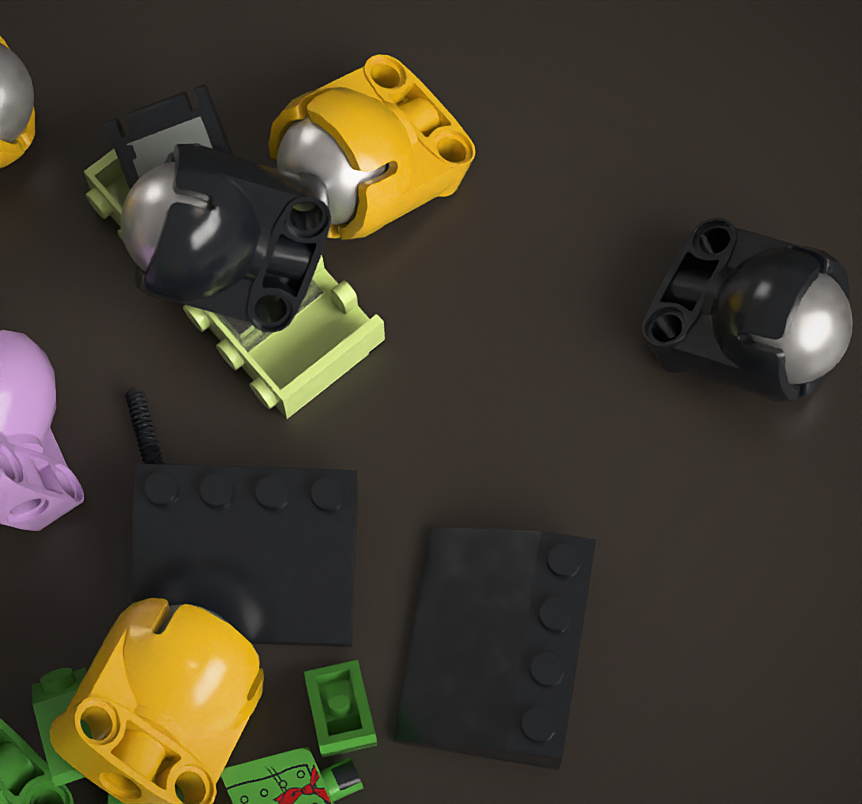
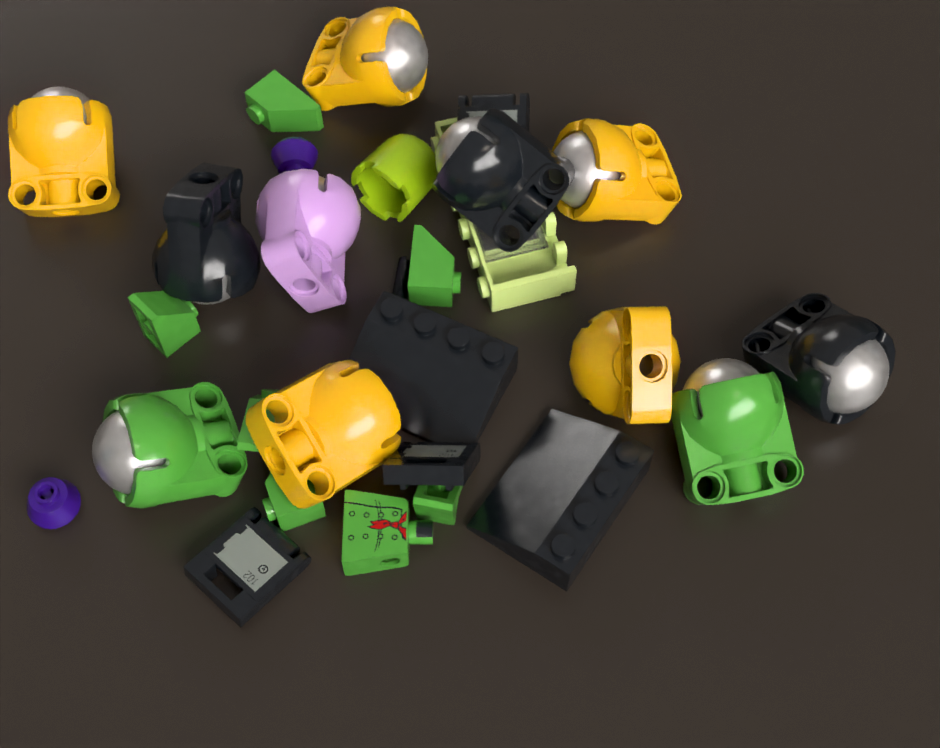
camera: 25 degrees right, 10 degrees down
(68, 276) = (396, 176): none -> lime cylinder
(182, 398) = (431, 271): none -> bright green slope
(315, 671) = (431, 464): none -> black container
(515, 438) = (628, 364): none -> yellow piece
(685, 472) = (733, 432): none -> bright green piece

